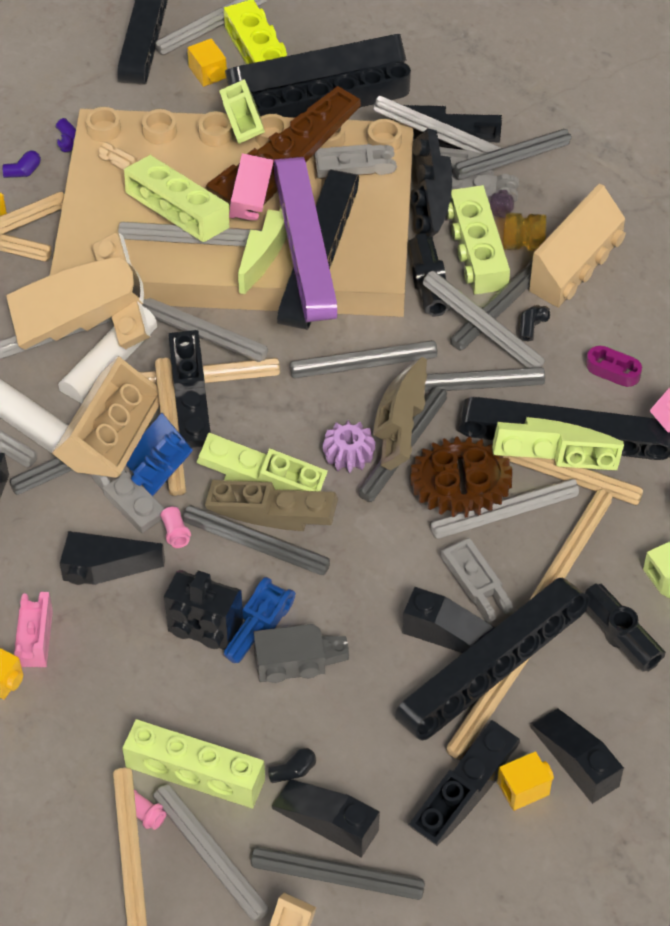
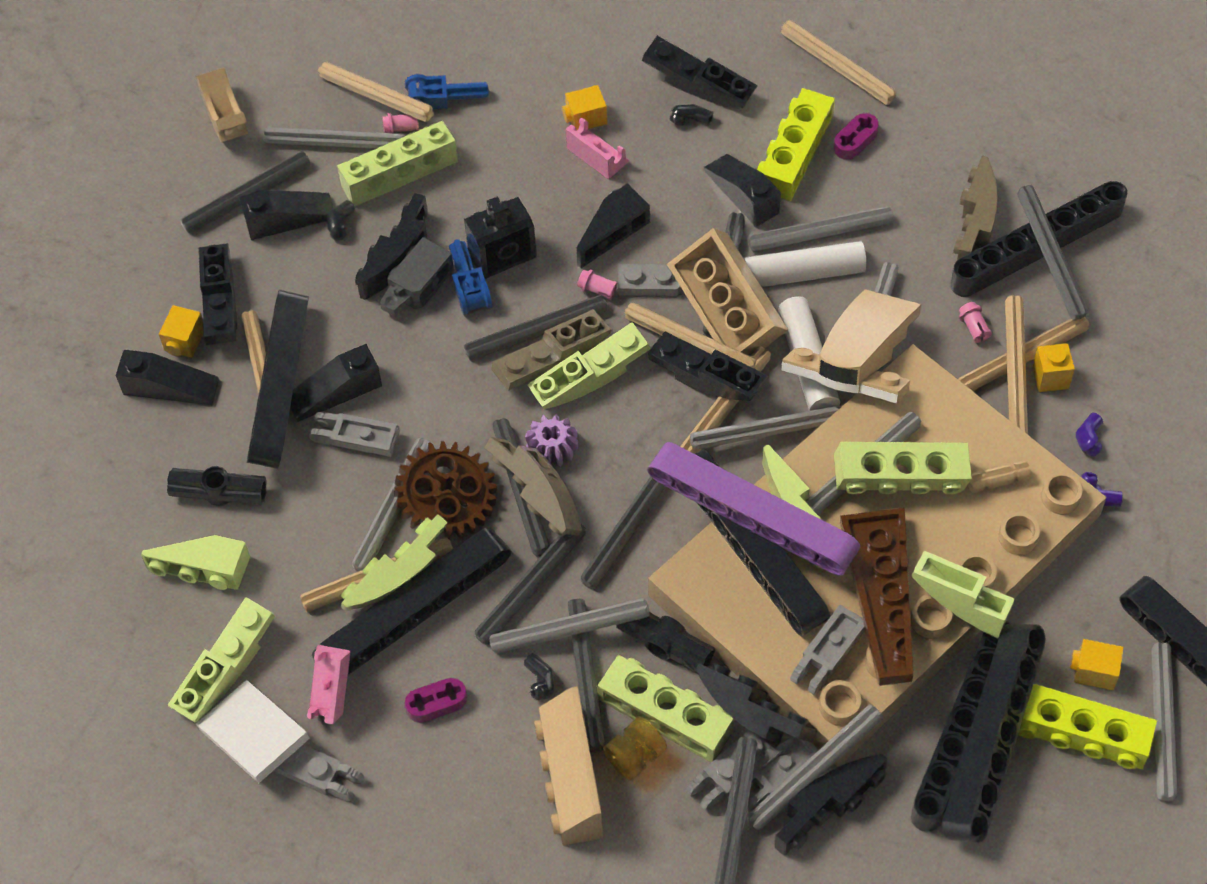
camera: 135 degrees right, 5 degrees up
(79, 808) = (436, 92): none -> blue connector
(158, 455) = (657, 305): blue hinge -> none
(250, 187) = (857, 518): bright pink hinge -> none
(293, 687) = (392, 250): none -> black slope
(501, 203) = (688, 764): clear purple plate -> none
(577, 539) = (312, 516): tan axle -> none

